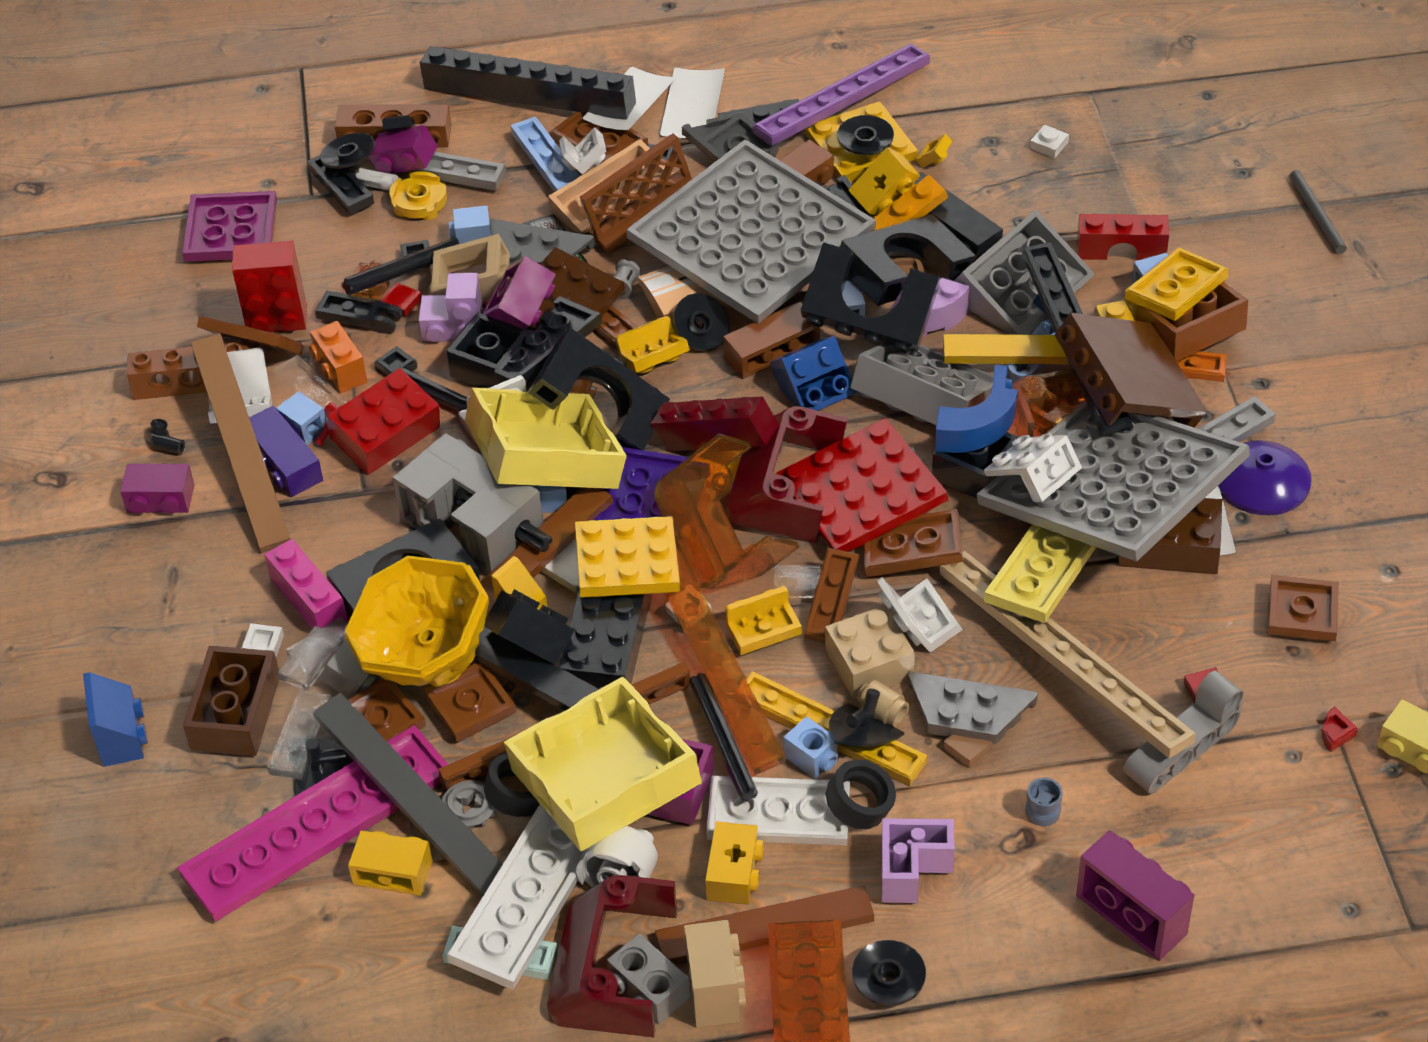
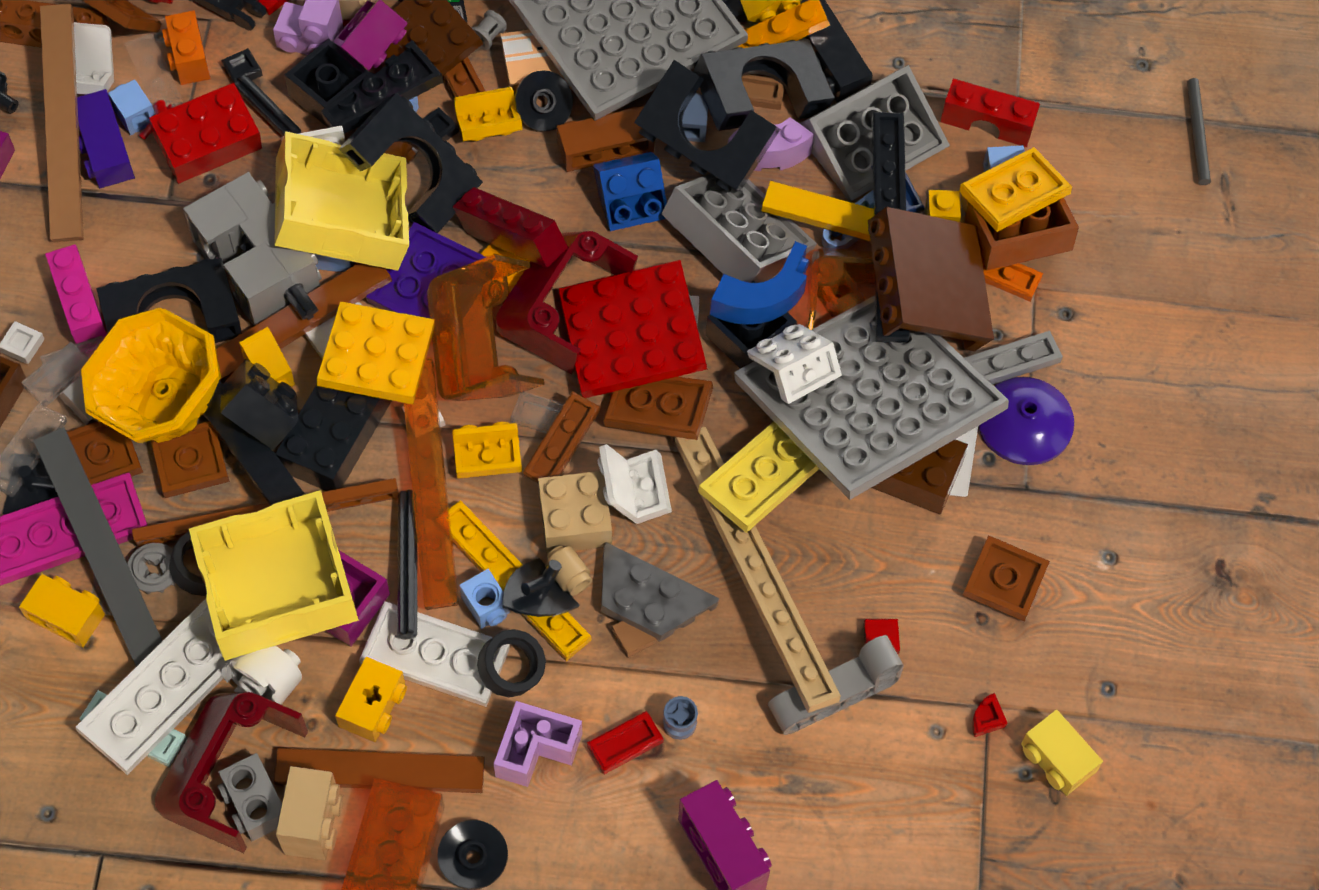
camera: 10 degrees right, 15 degrees up
(997, 840) = (625, 742): none -> red tile

